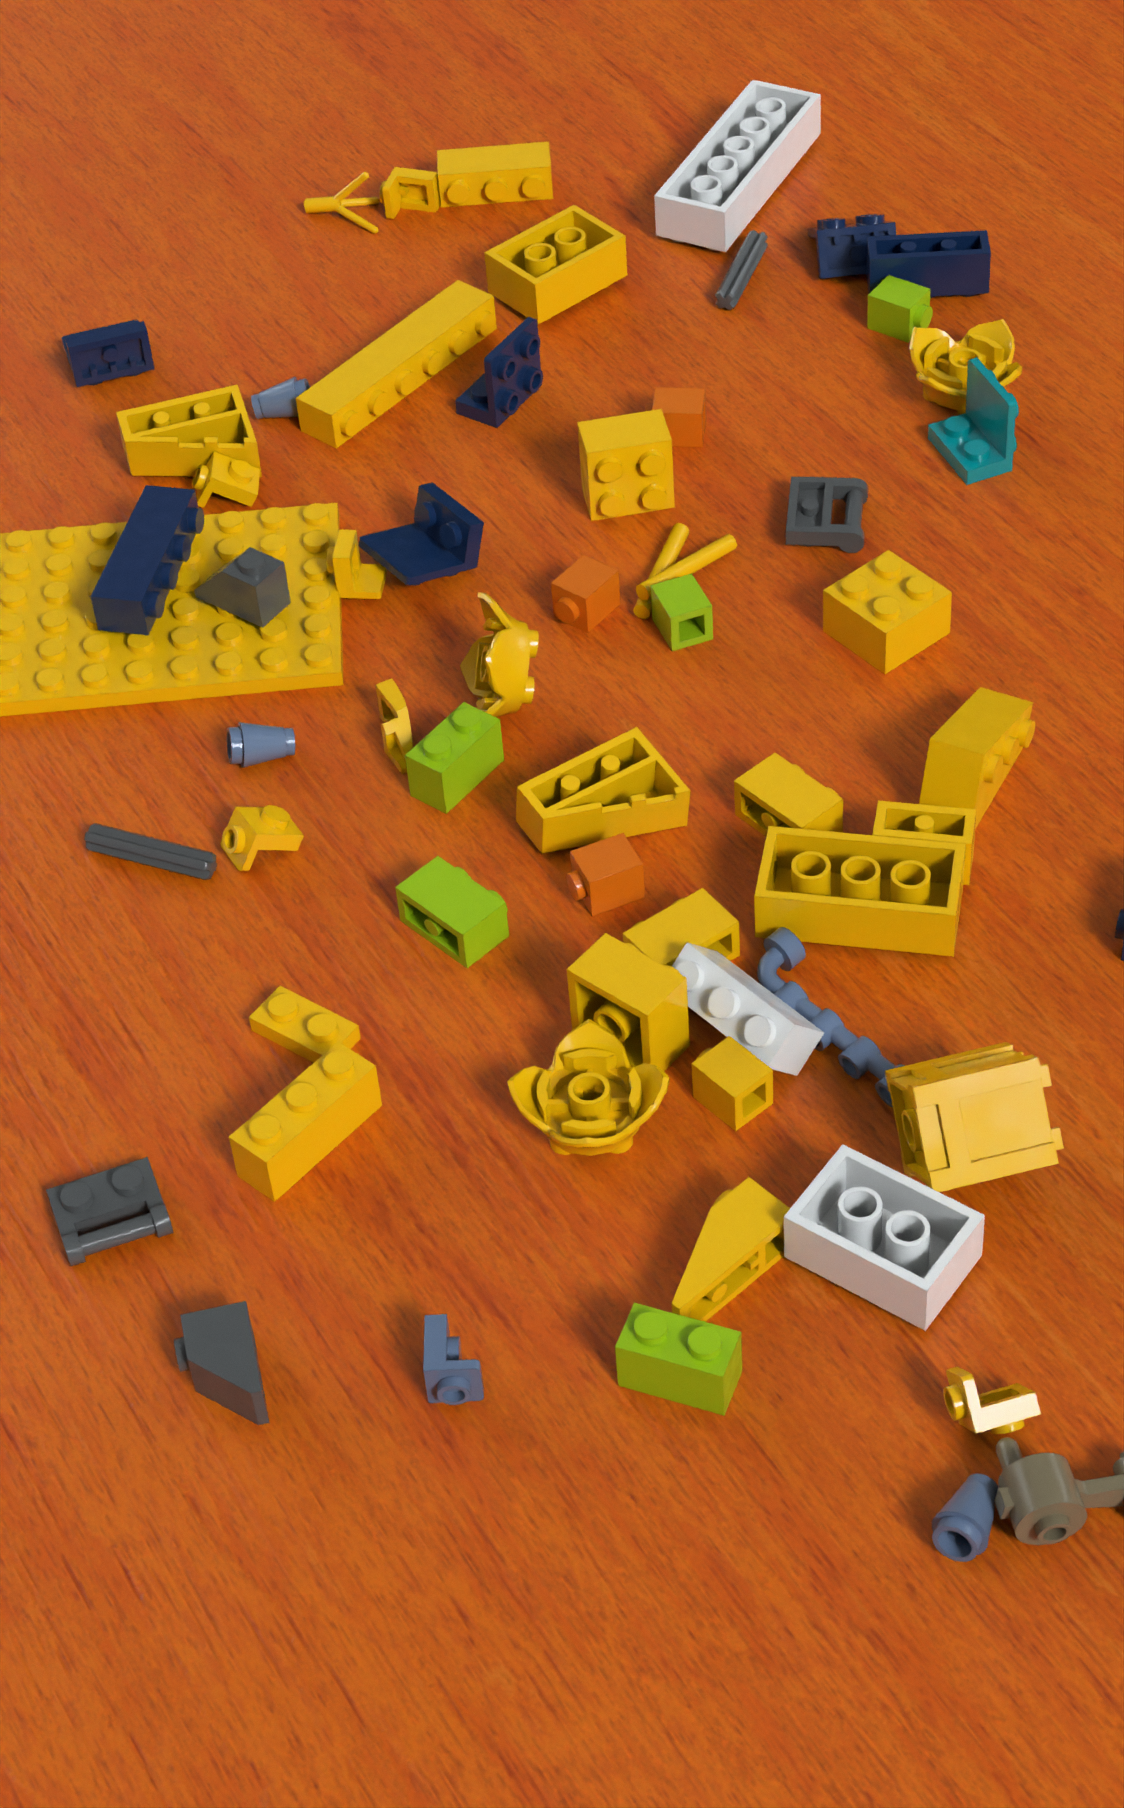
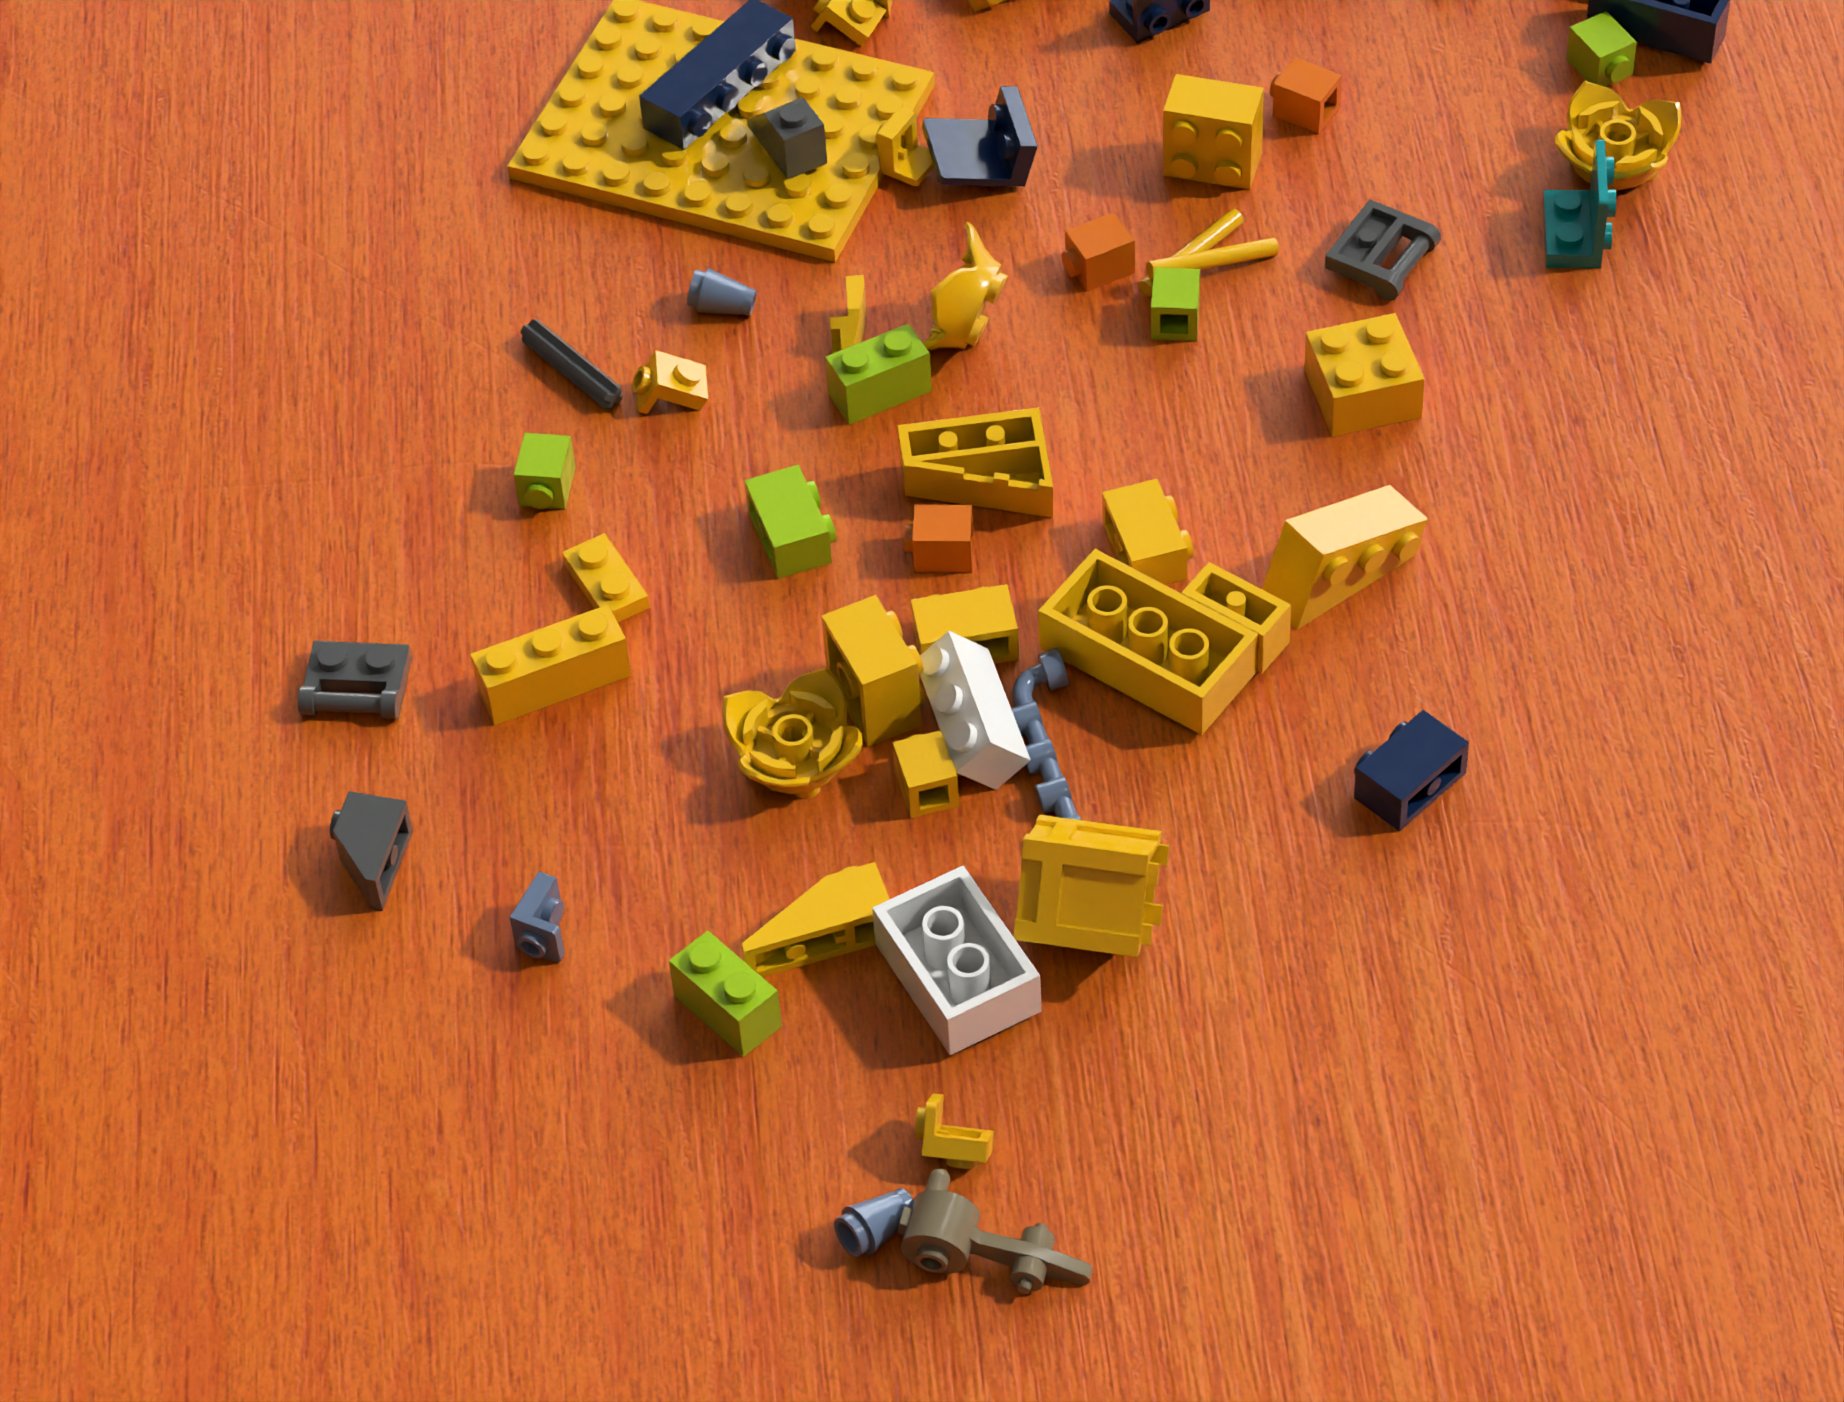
camera: 25 degrees right, 5 degrees up
(187, 951) = (544, 471): none -> lime brick

